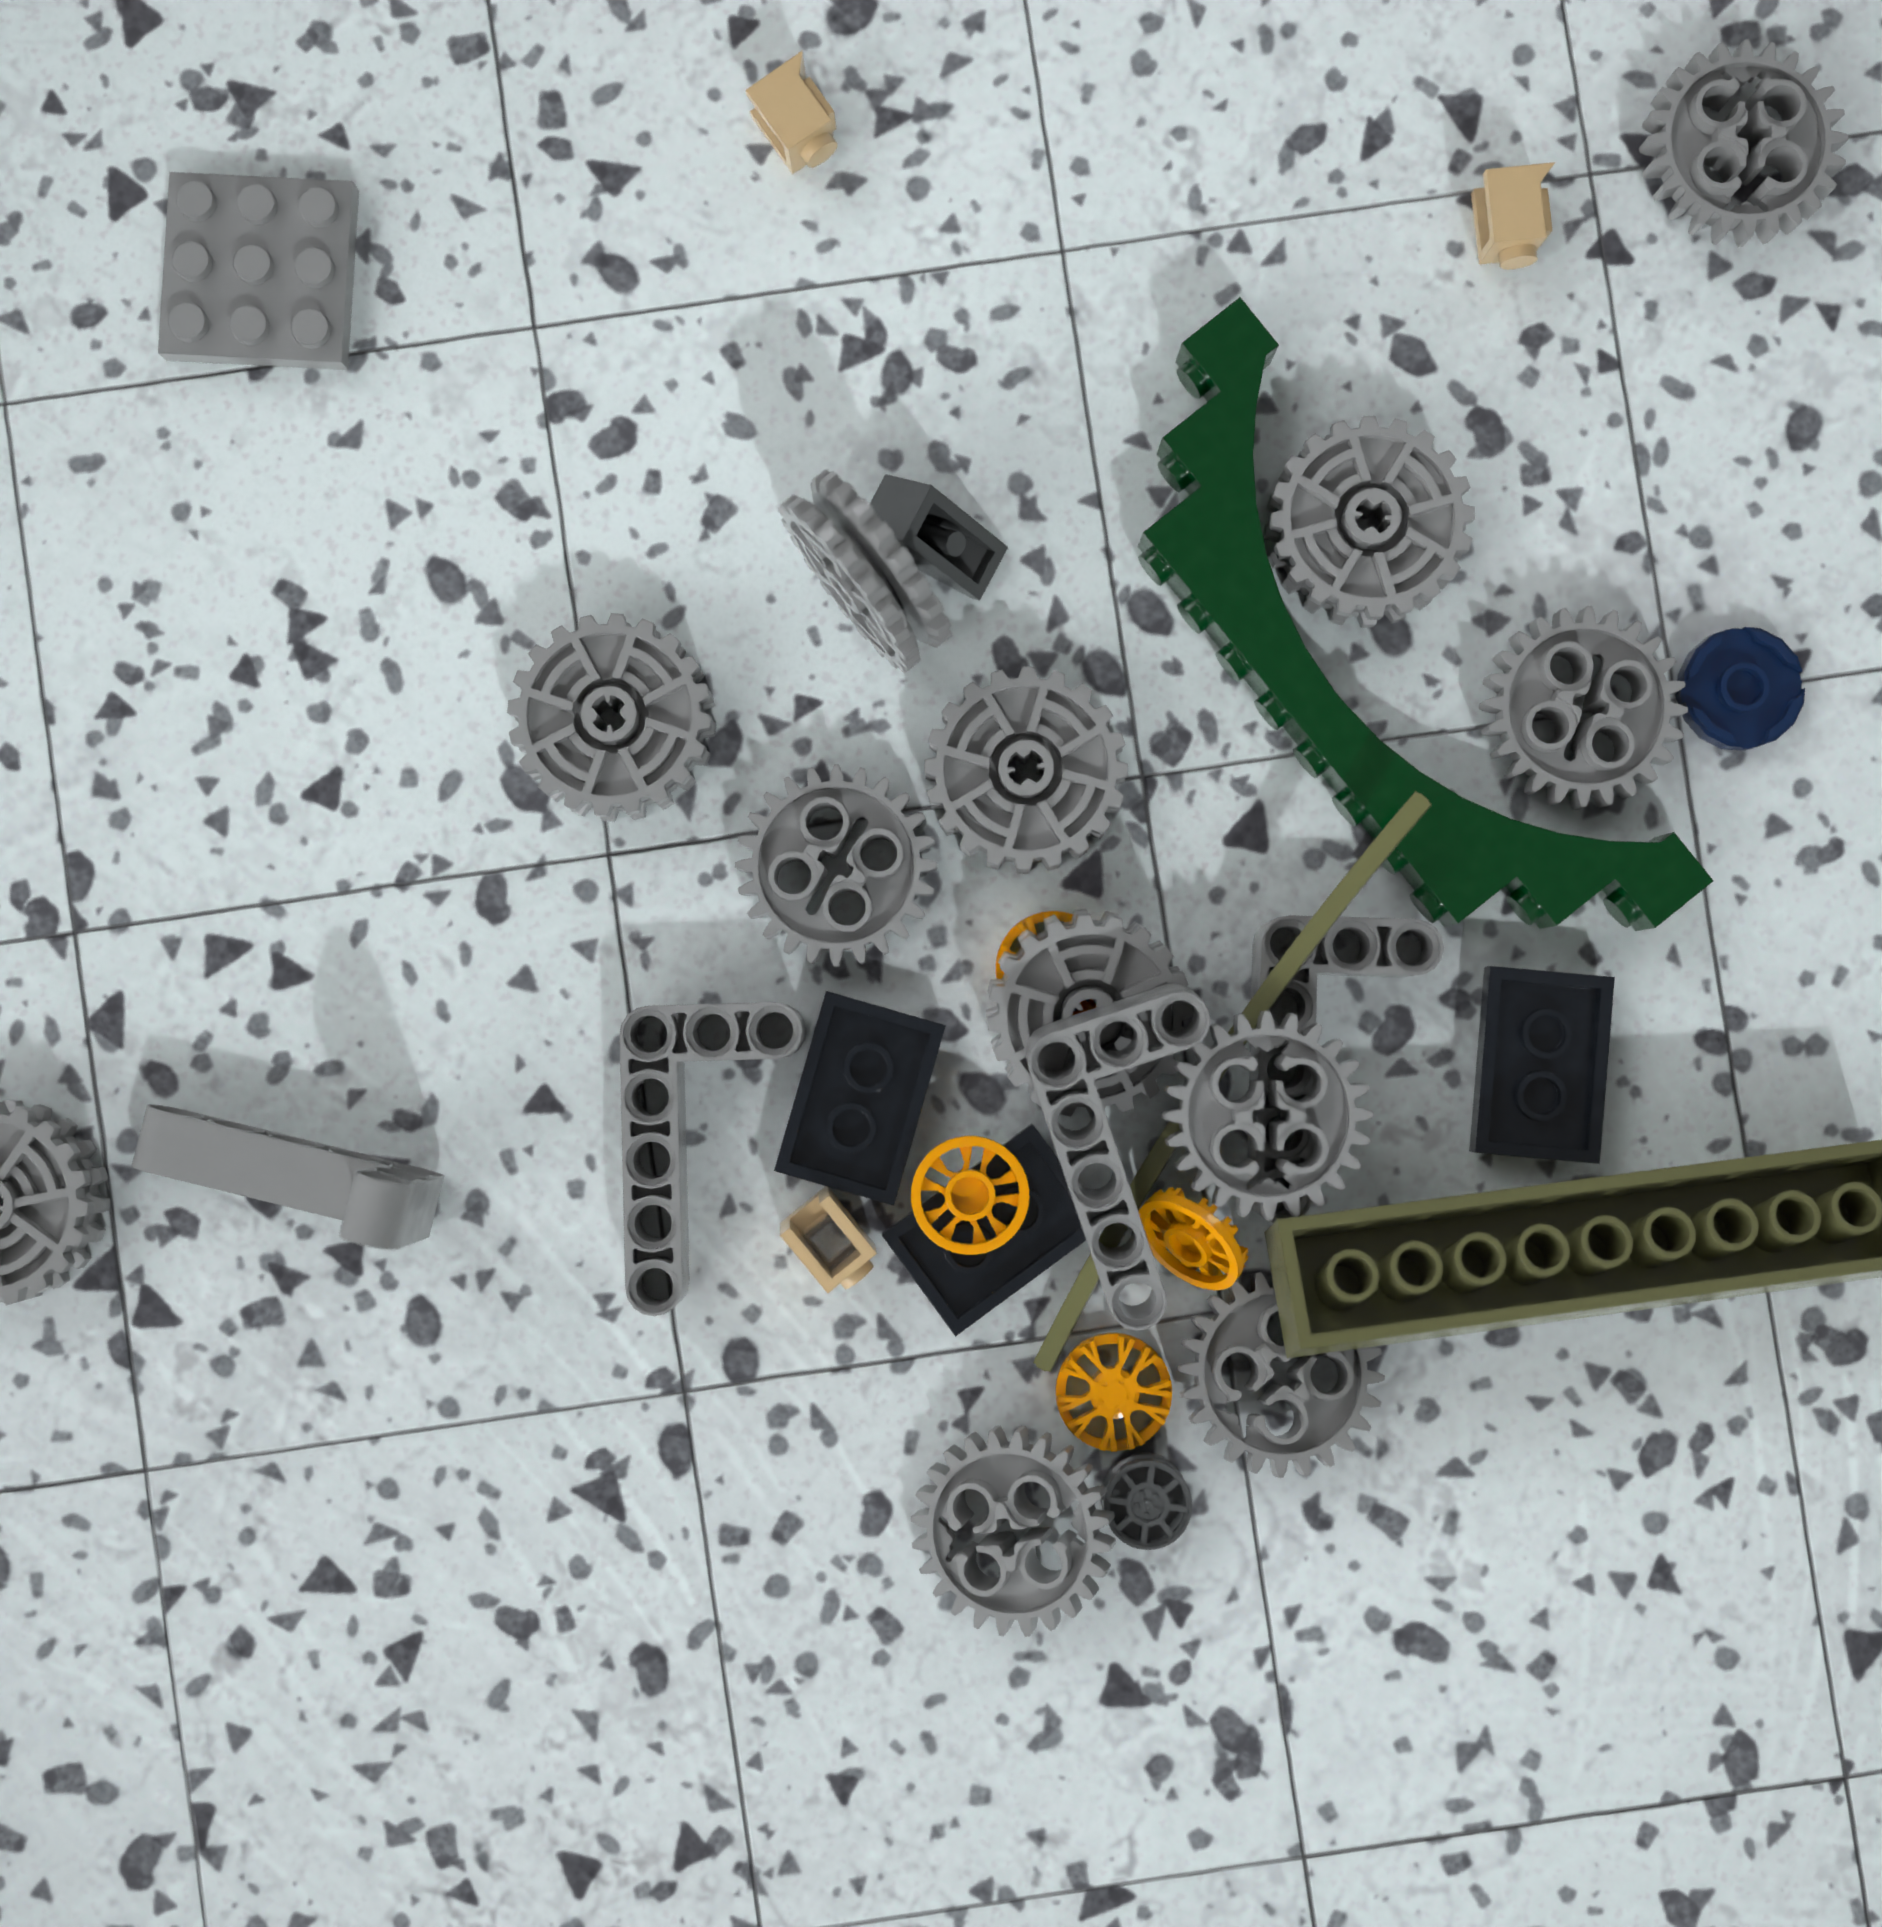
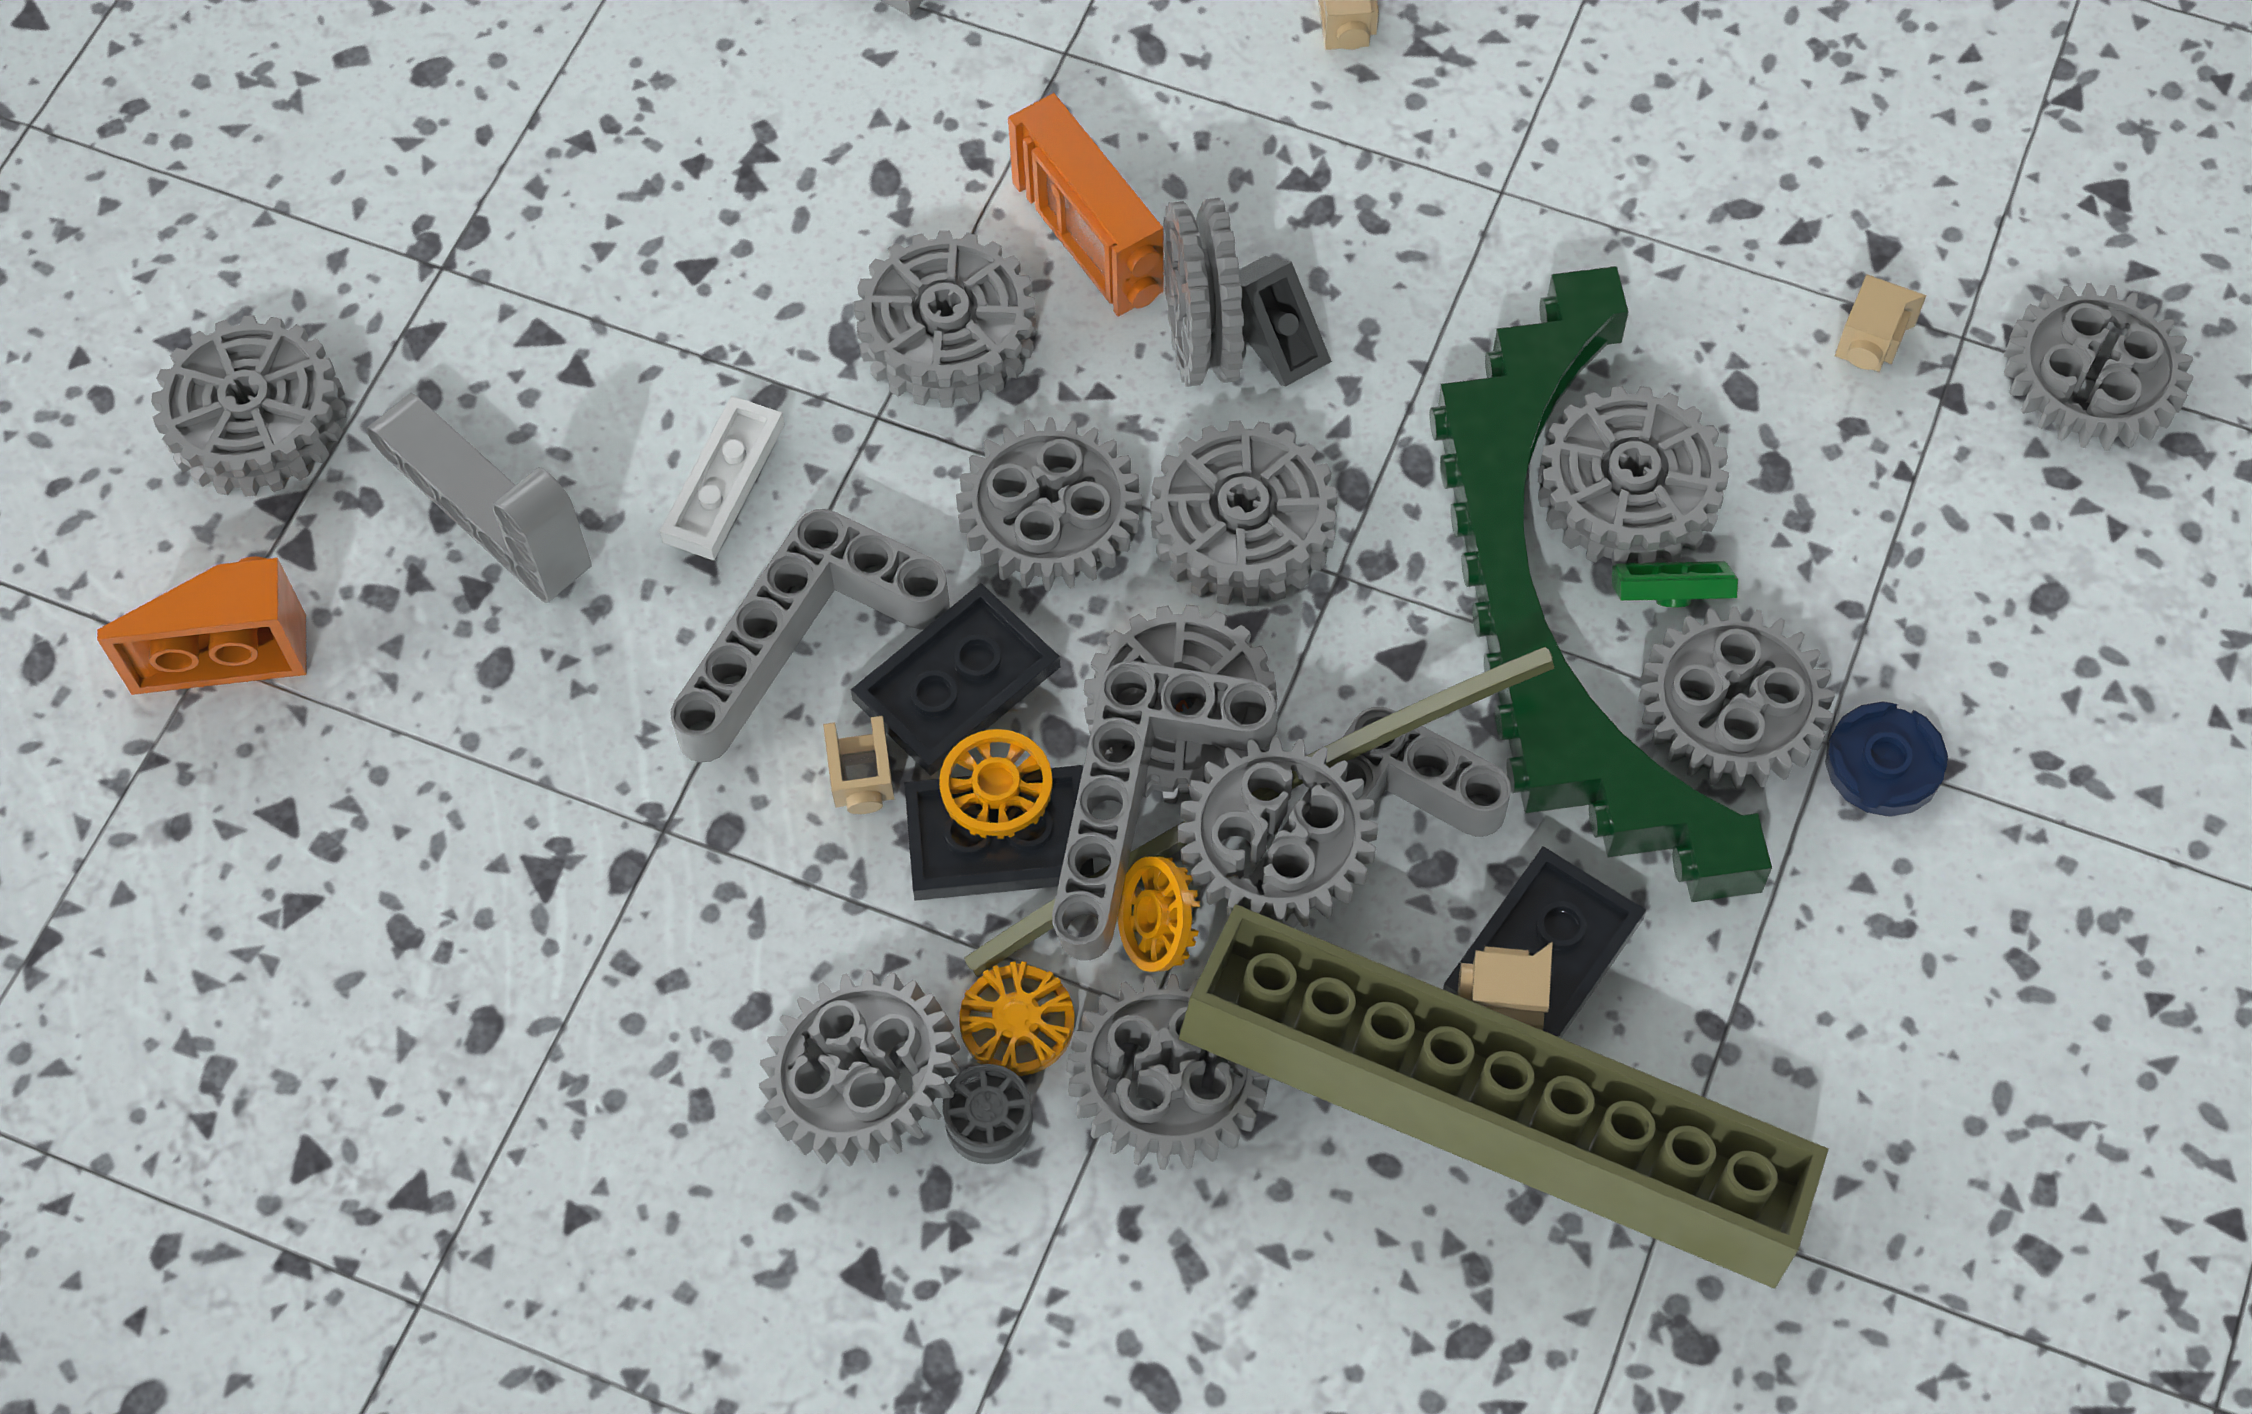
camera: 30 degrees right, 25 degrees down
(144, 1458) = (212, 631): none -> orange slope
(508, 1013) = (722, 478): none -> white plate
(679, 518) = (1087, 204): none -> orange door
(1465, 616) = (1674, 582): none -> green plate
(1545, 1137) = (1509, 982): none -> tan window

